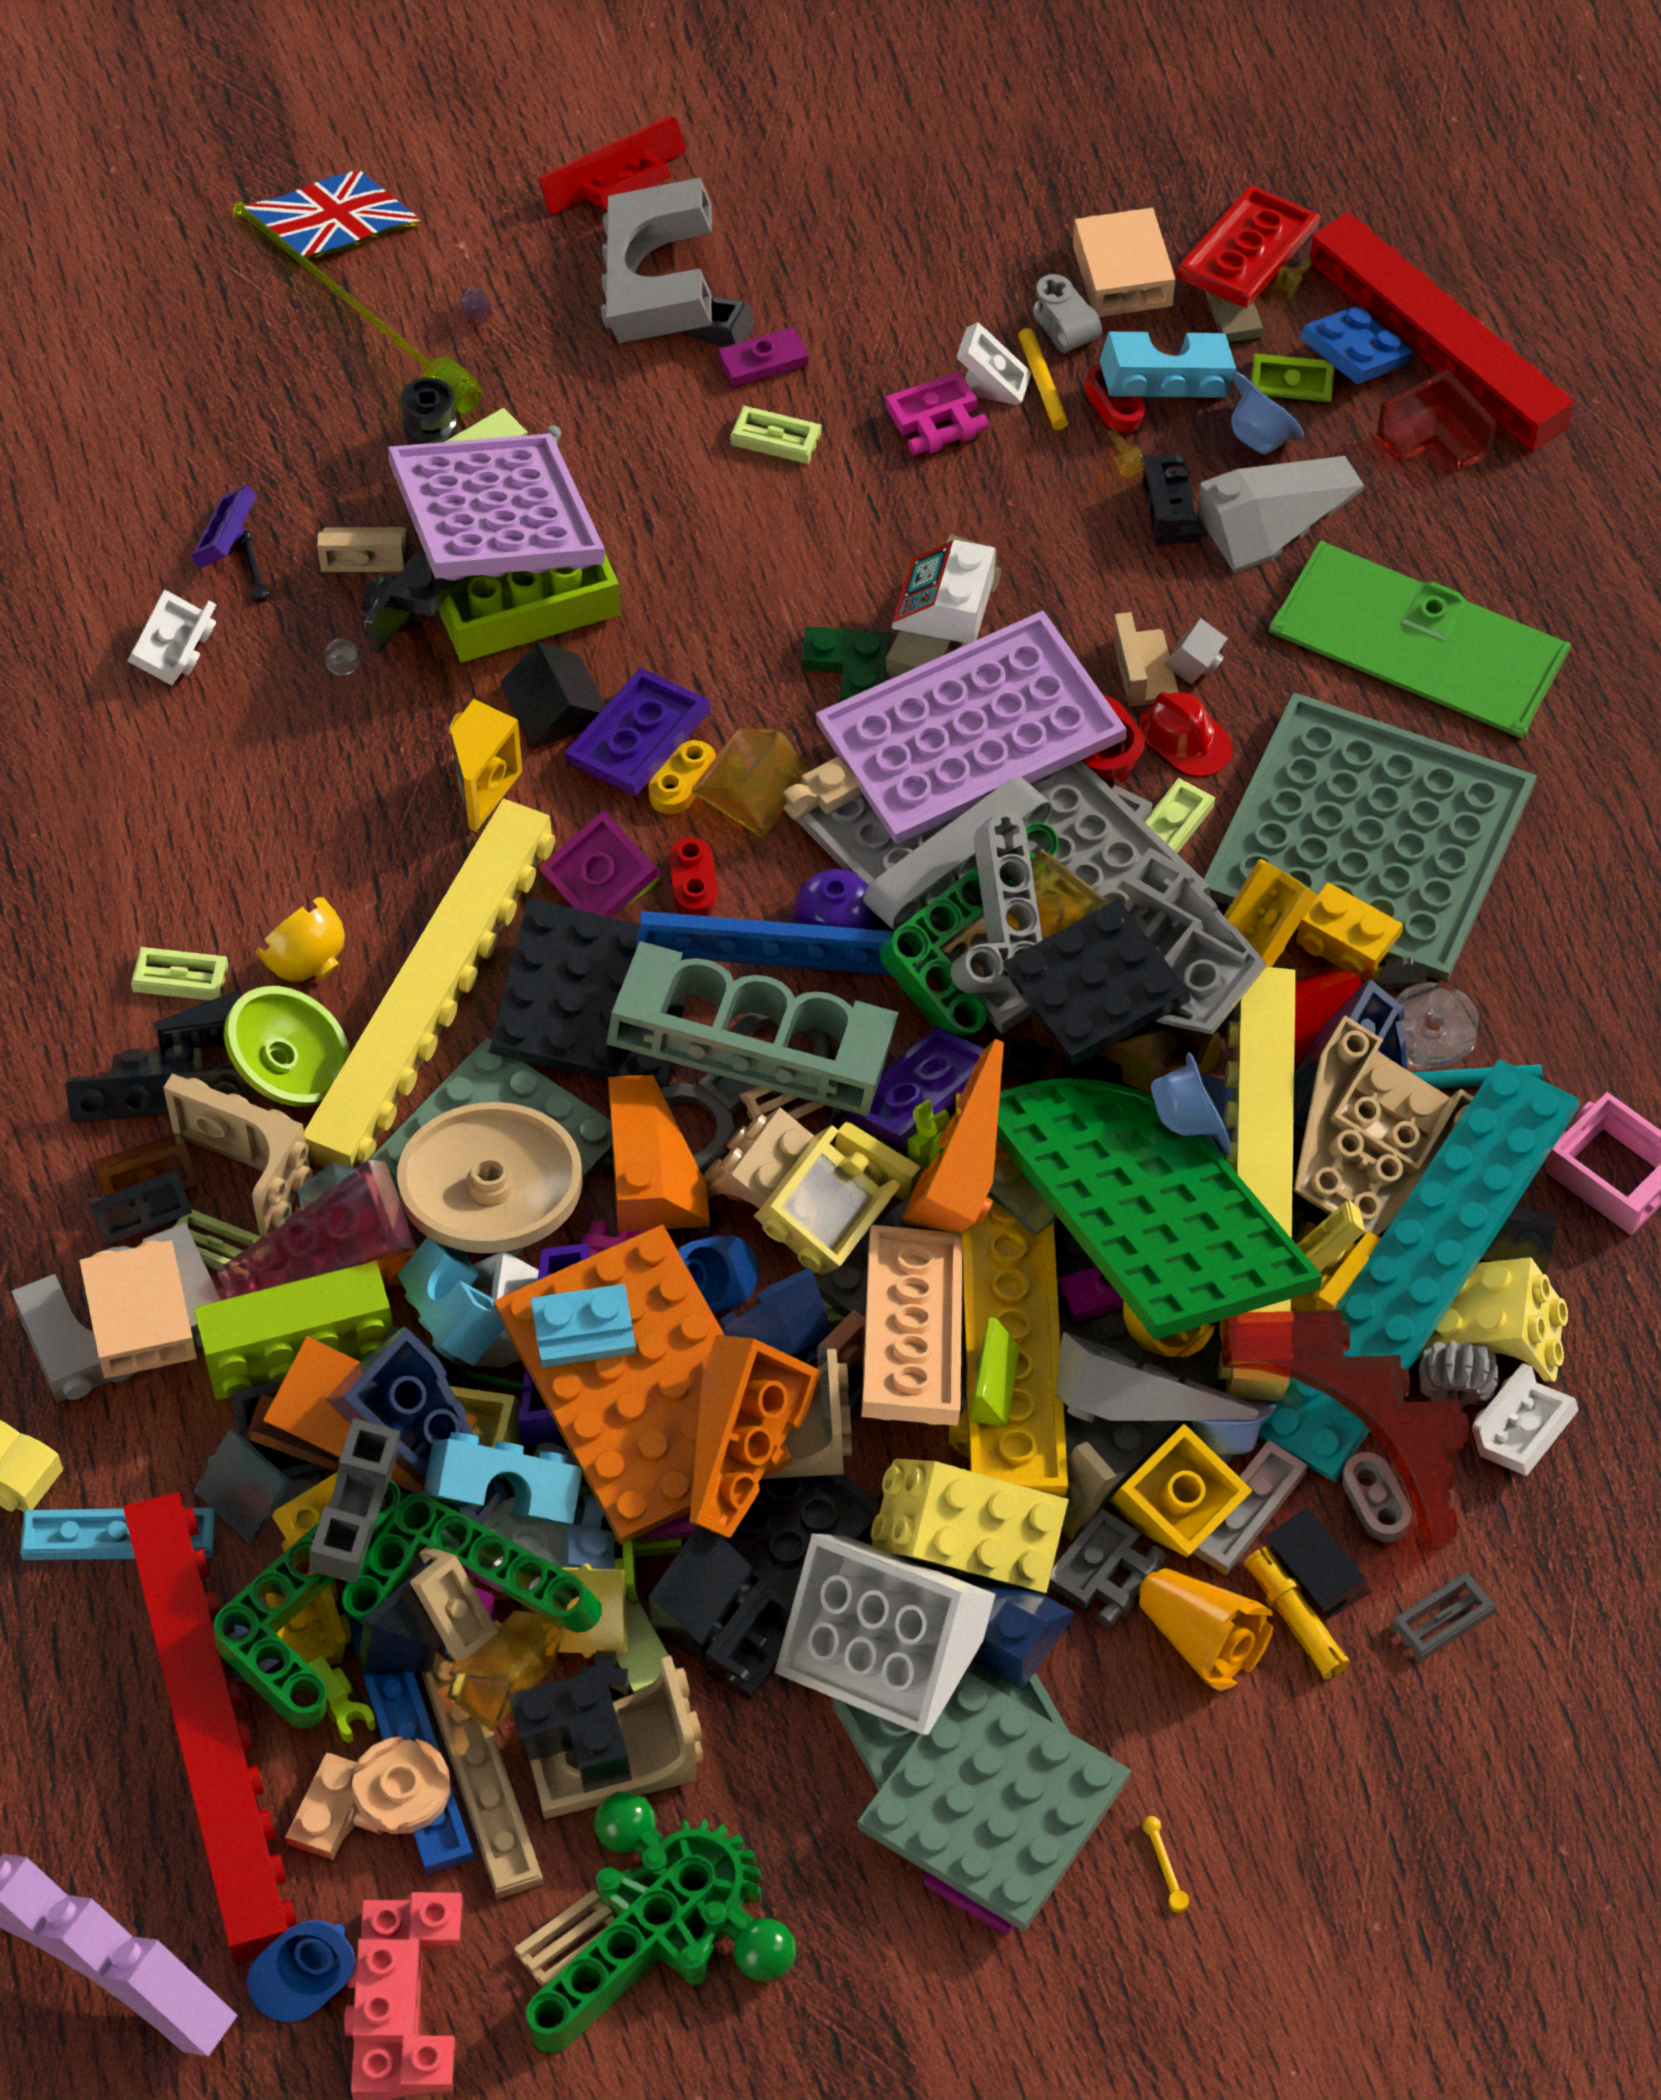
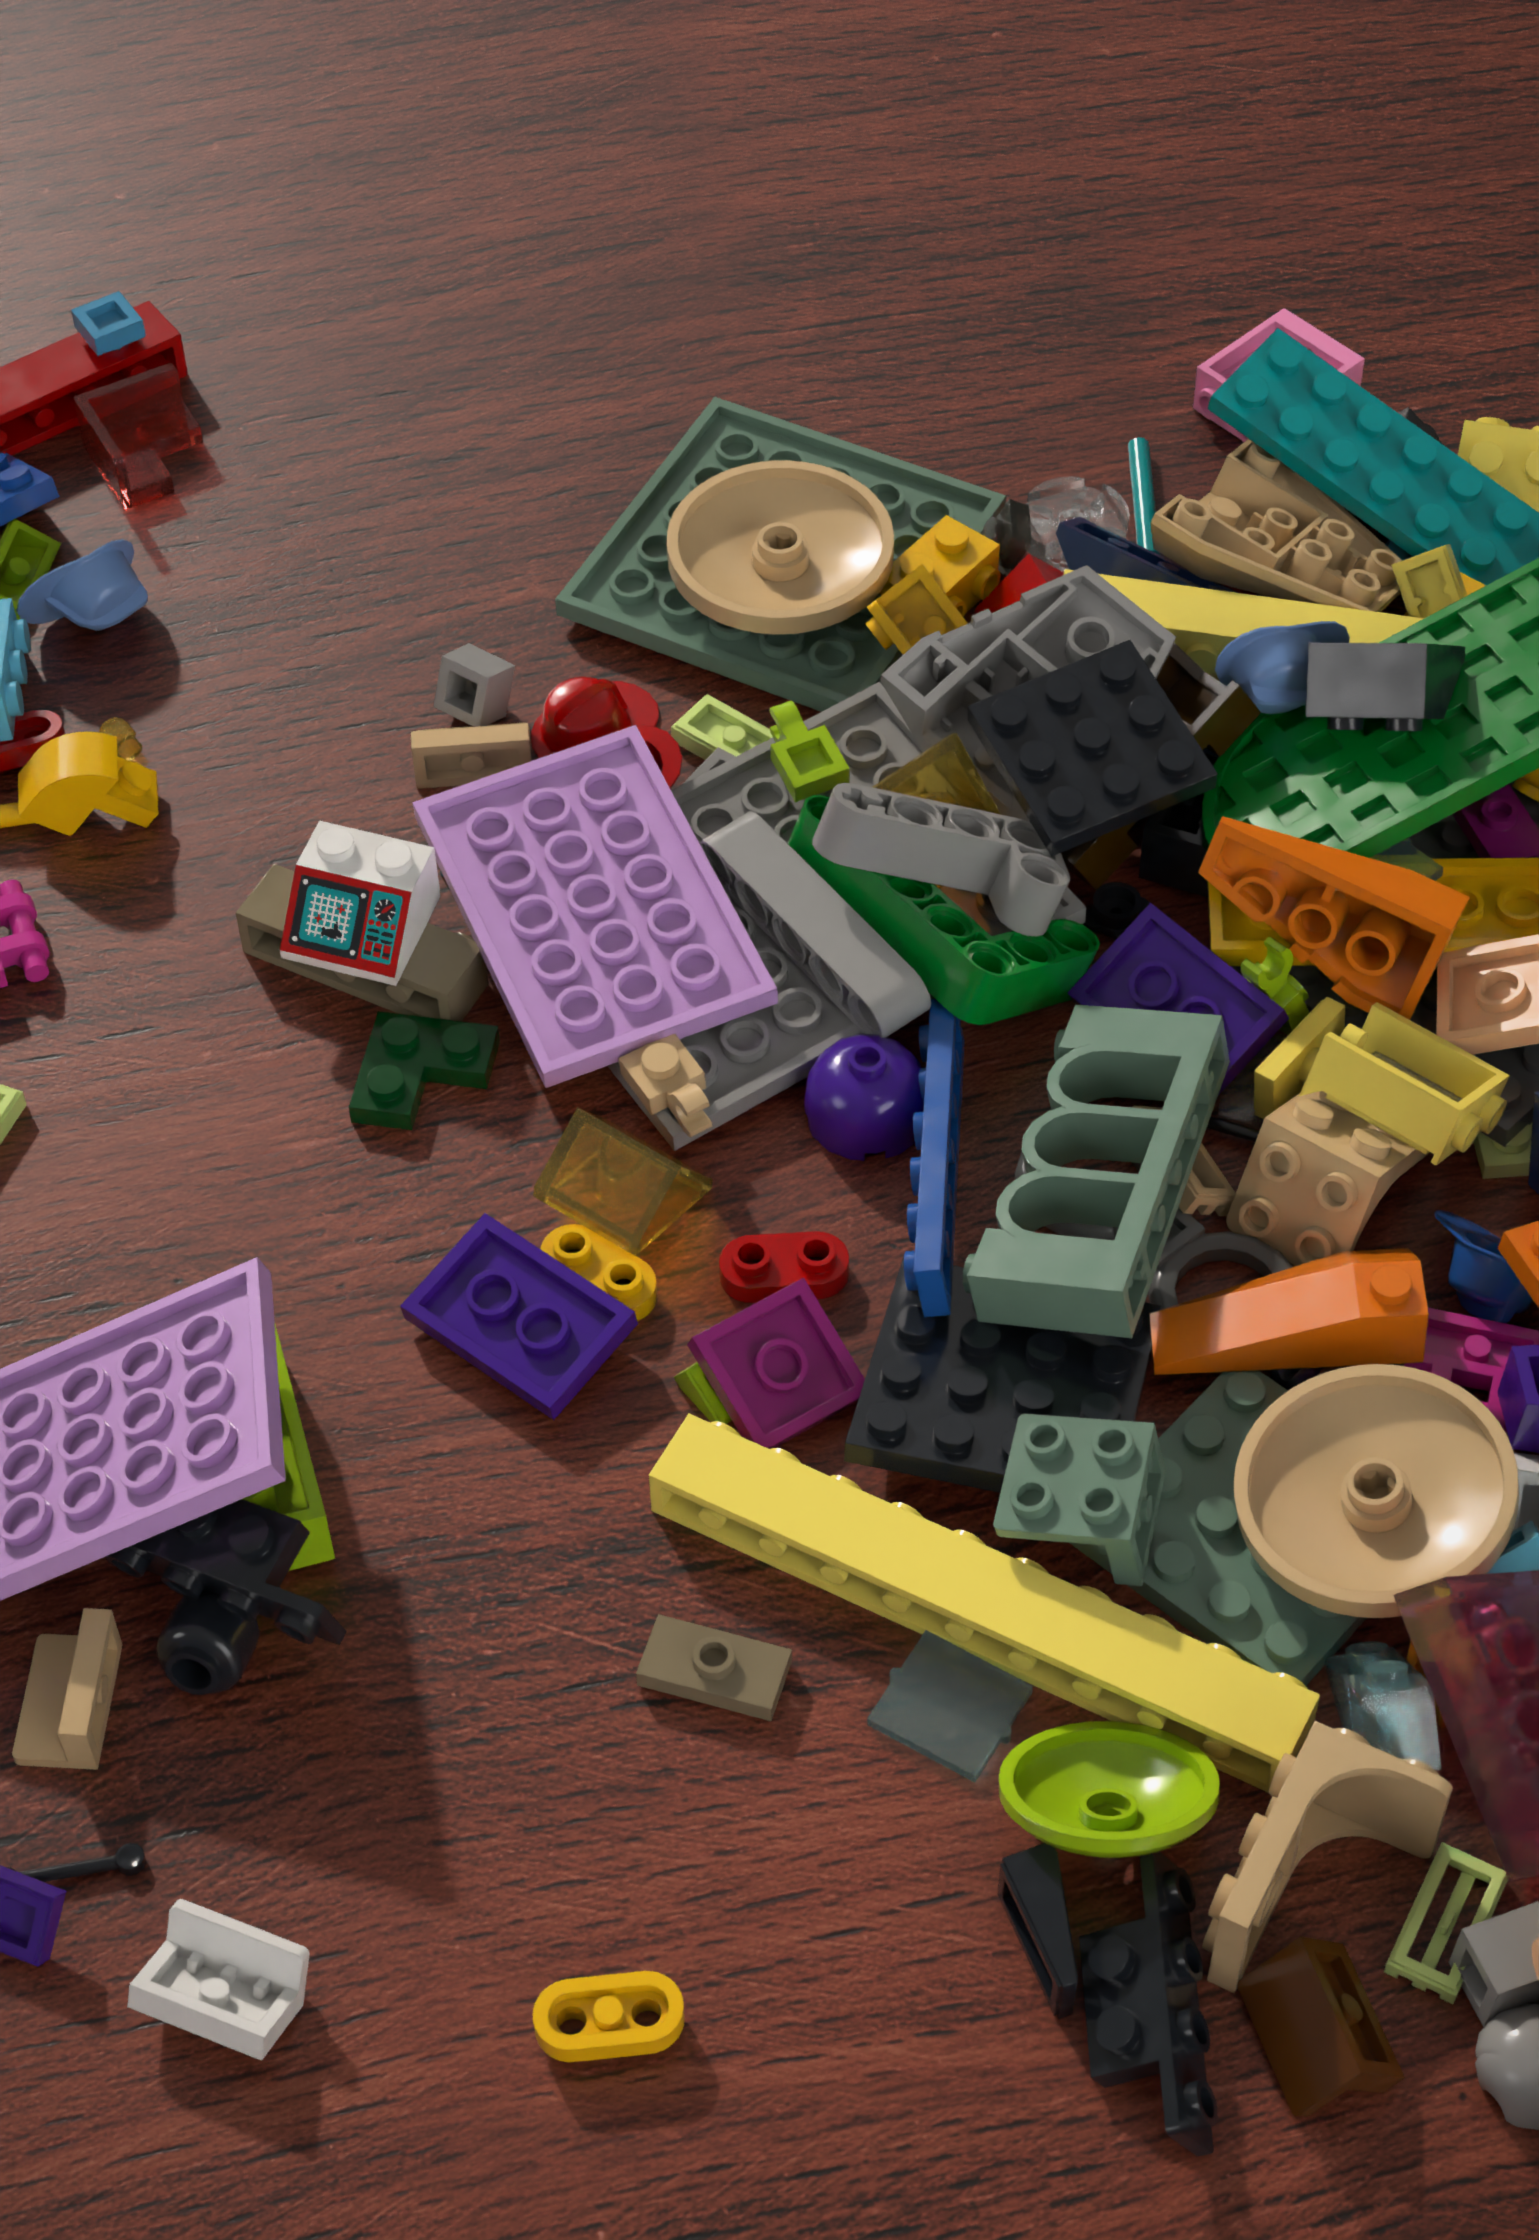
camera: 85 degrees left, 5 degrees down
(139, 1207) = (1418, 2015): black hinge -> none
(153, 823) = (608, 2010): none -> yellow plate
(178, 980) = (911, 2036): yellowish green tile -> none
(305, 944) = (894, 1770): yellow cylinder -> none
(342, 656) = (279, 1737): clear hinge -> none
(359, 981) = (950, 1705): none -> clear light blue piece
(387, 858) = (714, 1667): none -> dark tan plate
(484, 758) = (576, 1503): yellow slope -> none
(486, 1024) = (1085, 1486): none -> sand green bracket
(551, 694) = (429, 1434): black slope -> none
(1072, 439) = (84, 774): none -> yellow brick
(1116, 839) = (805, 758): none -> lime plate
(1169, 501) = (203, 709): black hinge -> none
(1170, 1156) = (1381, 682): none -> black slope
(1265, 507) = (237, 610): light grey wedge -> none
(1336, 810) = (780, 547): none -> tan dish
(1421, 638) = (473, 490): bright green door -> none
(1525, 374) = (108, 323): none -> dark azure plate

